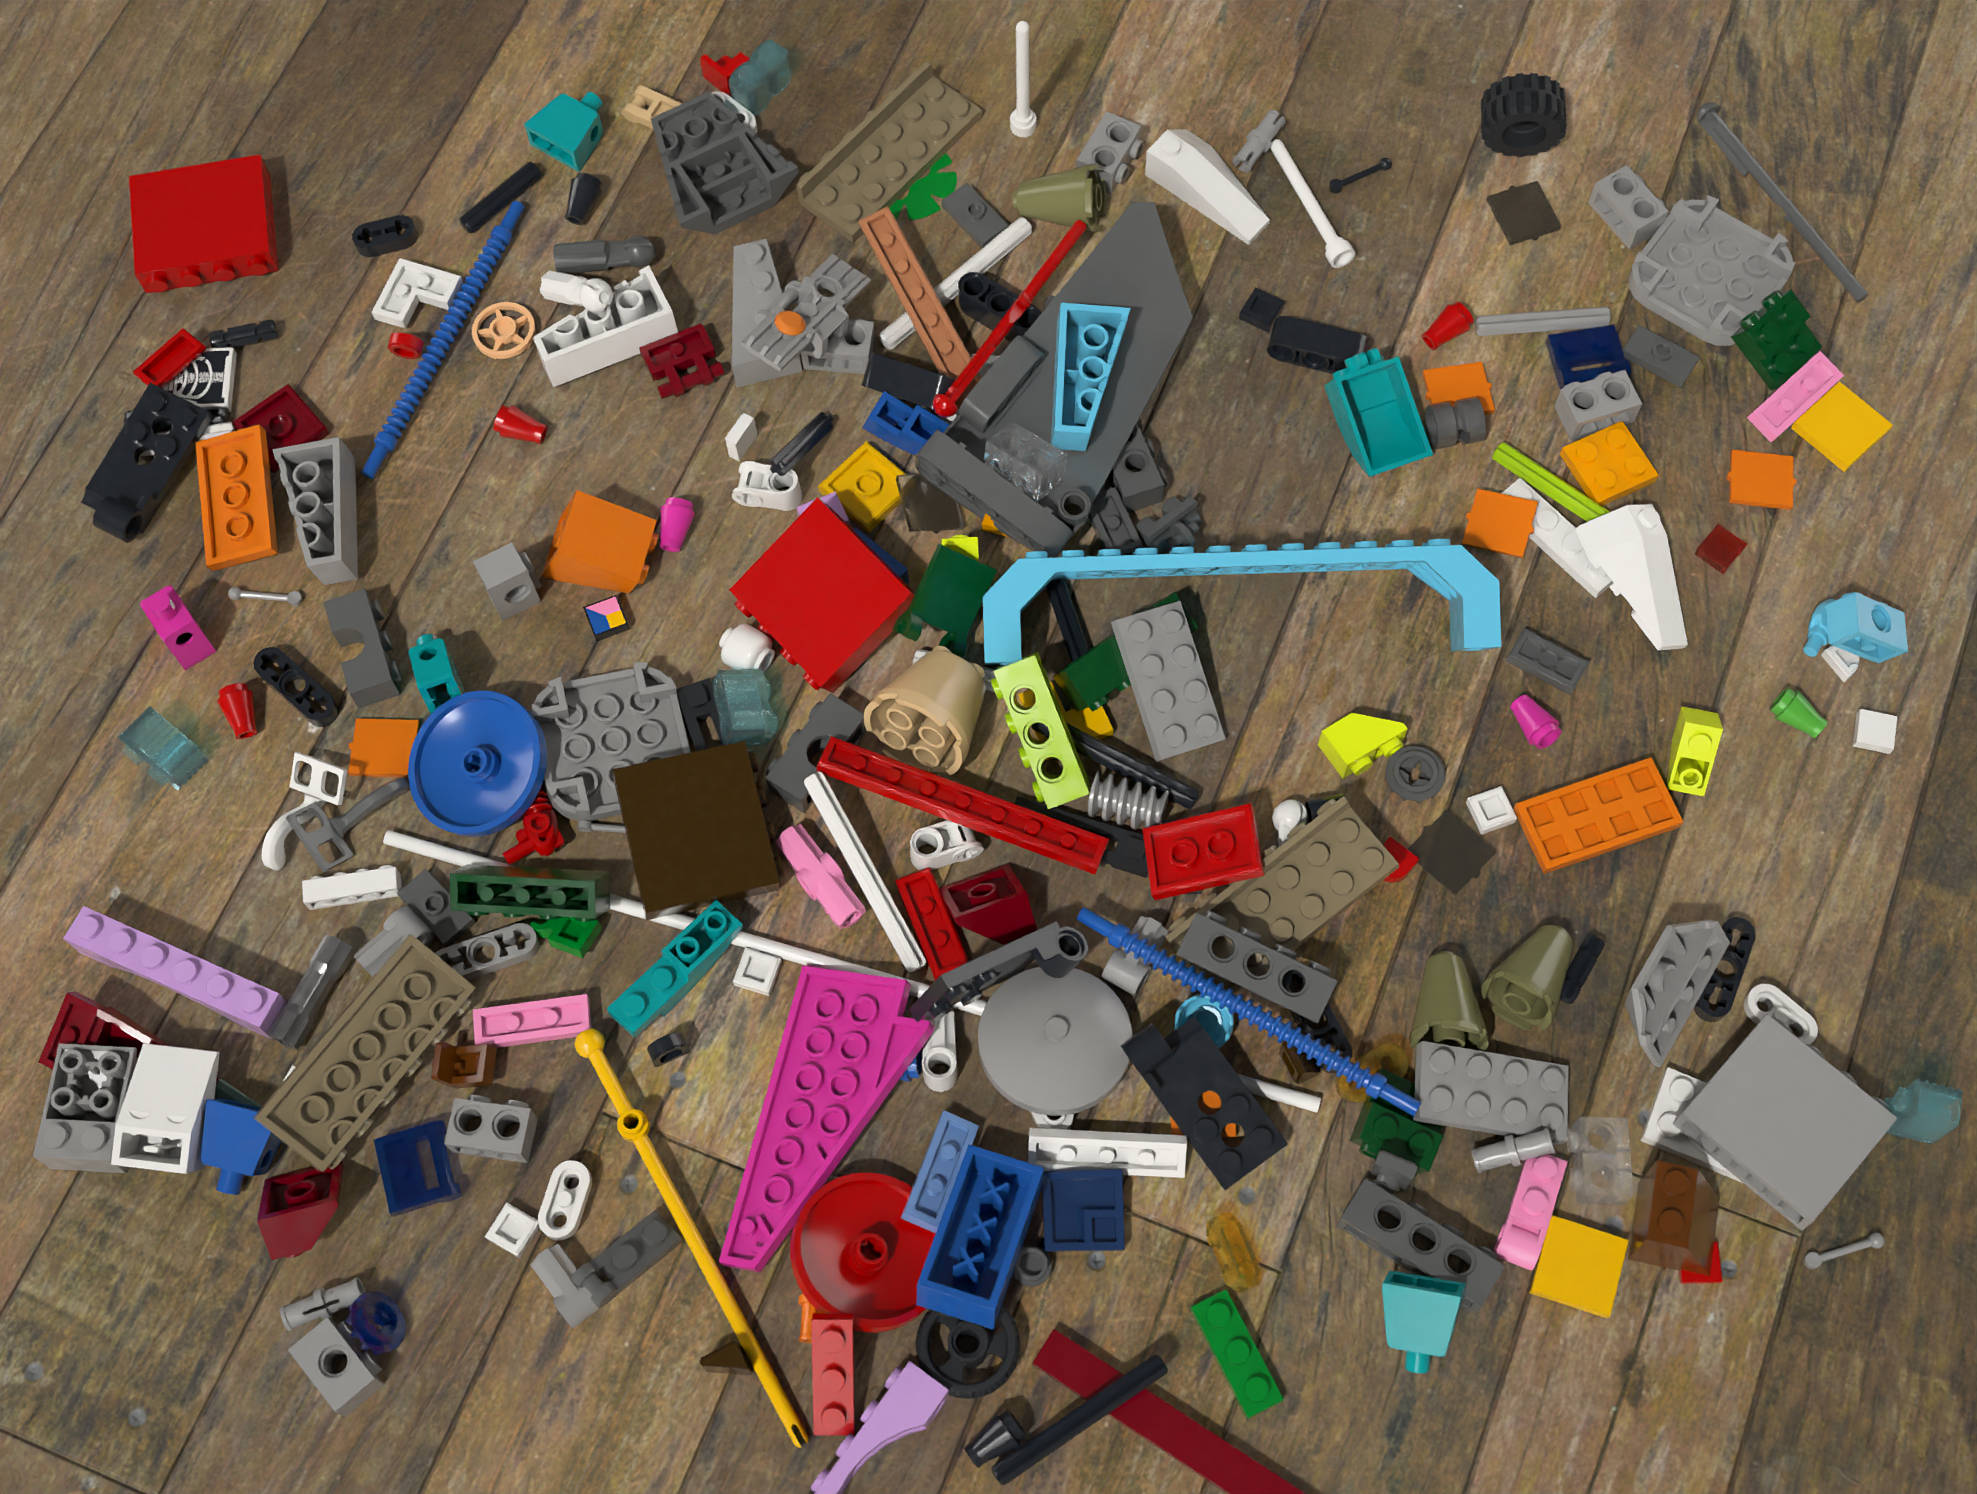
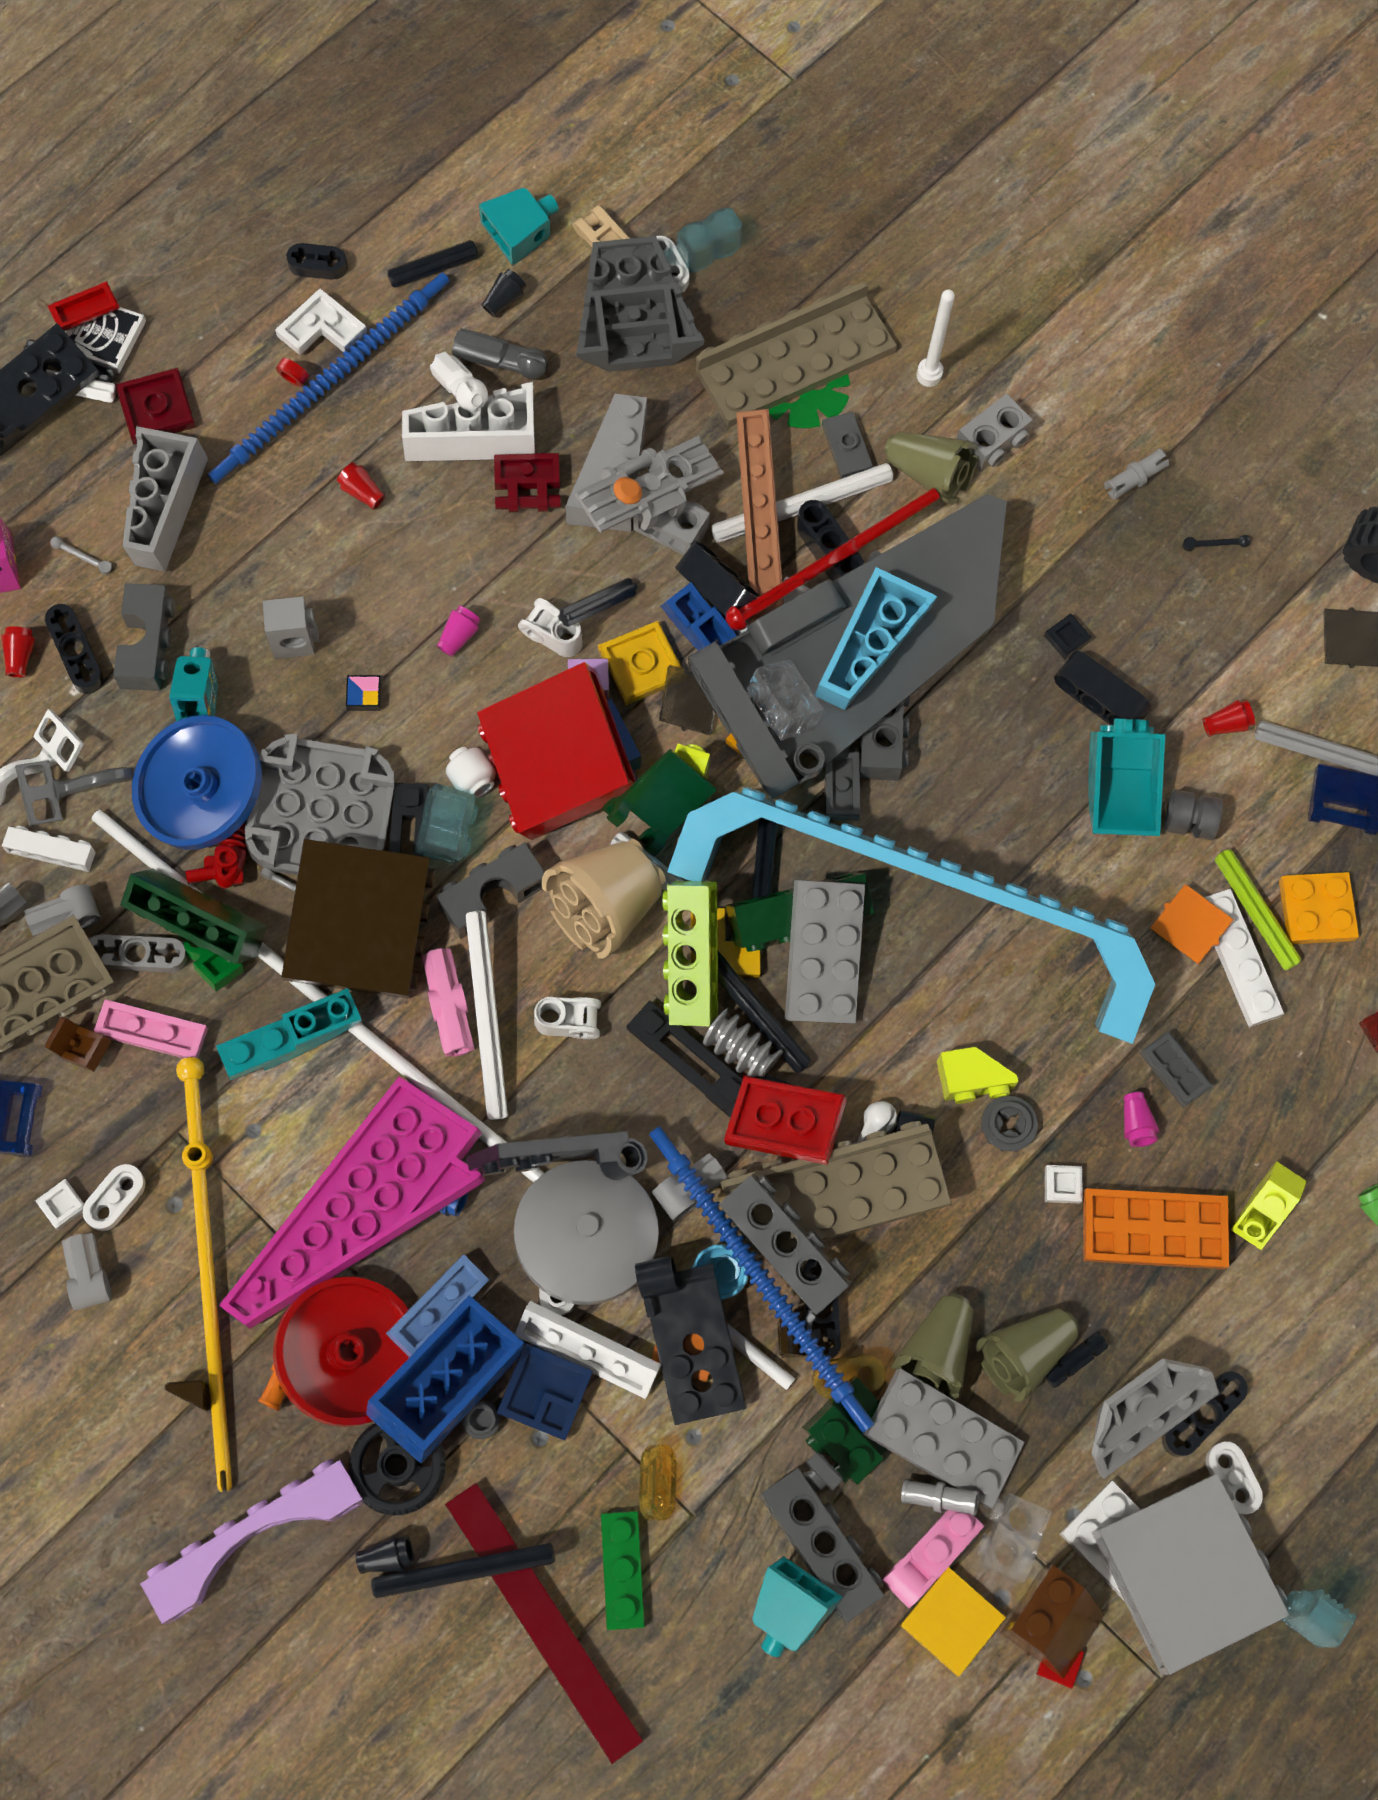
camera: 15 degrees right, 5 degrees up
(203, 224) = (163, 189): red brick -> none
(236, 498) = (90, 456): orange plate -> none
(244, 335) = (158, 307): black axle -> none
(382, 747) = (125, 732): orange piece -> none
(433, 906) = (108, 888): dark grey plate -> none
(488, 1138) = (74, 1115): light grey brick -> none
(504, 330) = (384, 390): light nougat wheel -> none
(600, 545) = (384, 626): orange slope -> none
(627, 1258) = (143, 1271): dark grey plate -> none
(667, 1049) = (254, 1101): black tile -> none
(719, 72) = (679, 217): red panel -> none
(741, 437) = (549, 573): white tile -> none
(757, 971) = (360, 1064): white tile -> none
(833, 1373) = (271, 1443): plate -> none
(931, 922) = (527, 1085): red tile -> none
(940, 1049) = (484, 1198): white piece -> none
(962, 805) = (596, 991): red tile -> none
(991, 905) = (581, 1089): dark red slope -> none
(1174, 528) = (895, 811): dark grey hips -> none
(1204, 181) = (1070, 492): white wedge -> none
(1338, 251) = (1162, 607): white piece -> none
(1404, 857) = (960, 1194): red tile -> none
(1451, 852) = (1010, 1207): clear smoke piece -> none
(1458, 383) = (1215, 778): orange piece -> none
(1599, 409) = (1333, 856): light grey brick -> none
(1638, 560) = (1298, 1010): white wedge -> none
(1813, 1260) = (1163, 1704): light grey hinge -> none

